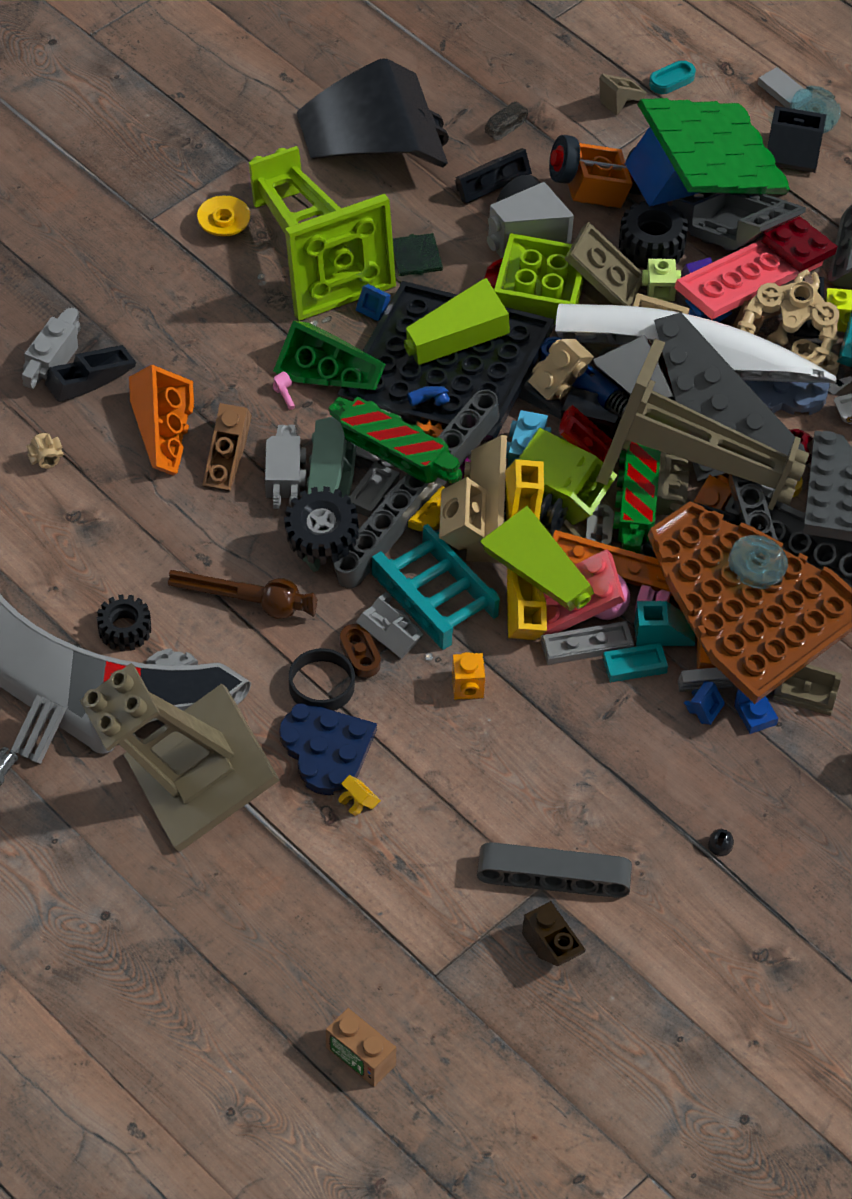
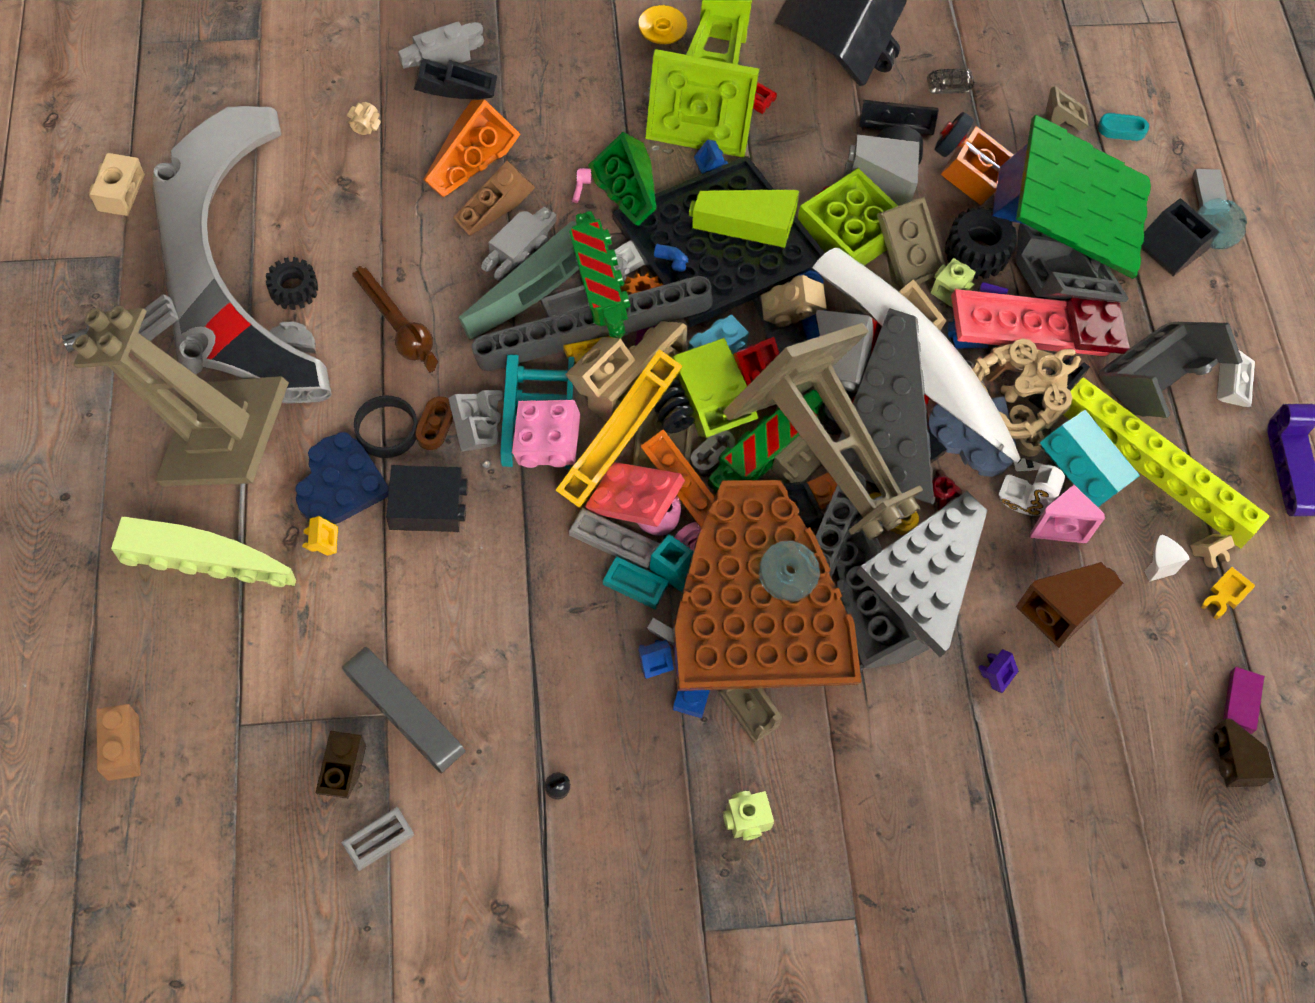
camera: 35 degrees right, 10 degrees up
(270, 873) = (193, 551): none -> yellowish green slope
(321, 511) = (473, 296): black wheel -> none
(413, 709) = (426, 498): none -> black brick
(416, 254) = (783, 143): clear green piece -> none
(468, 676) = (491, 500): light orange brick -> none
(469, 591) = (546, 433): none -> bright pink brick
(535, 556) = (614, 444): lime slope -> none
(620, 994) = (385, 848): none -> light grey tile

